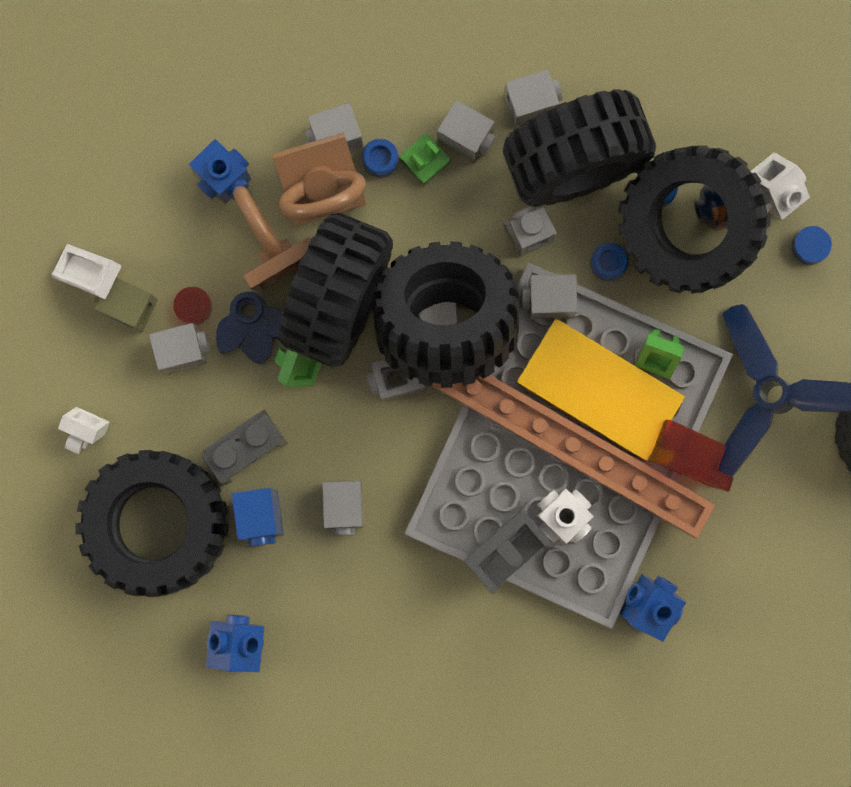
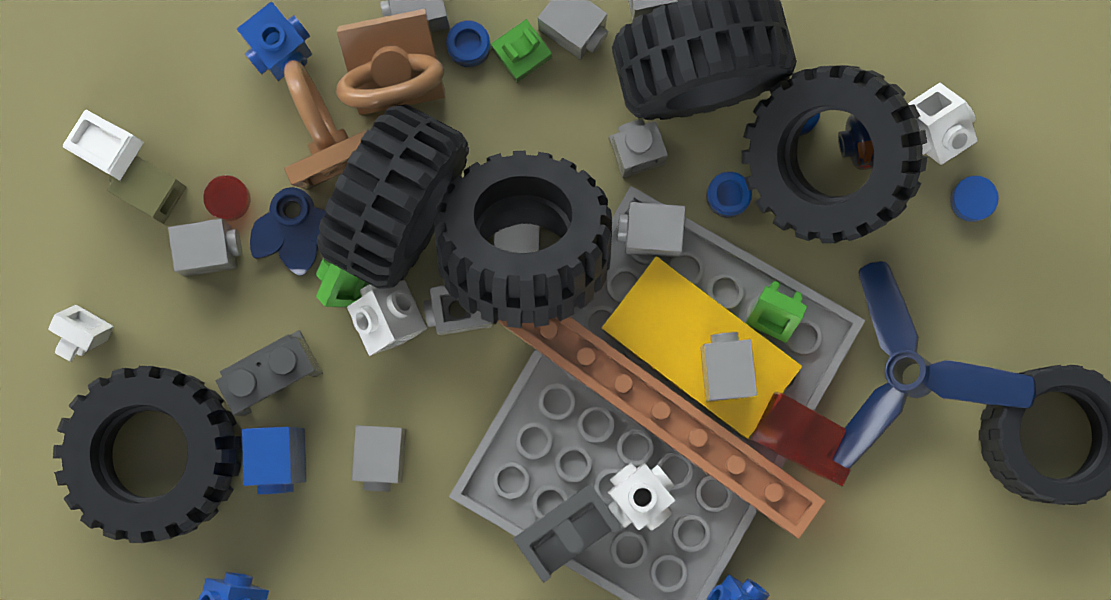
camera: 10 degrees right, 0 degrees up
(337, 391) = (386, 317): none -> white brick
(625, 403) = (728, 368): none -> light grey brick

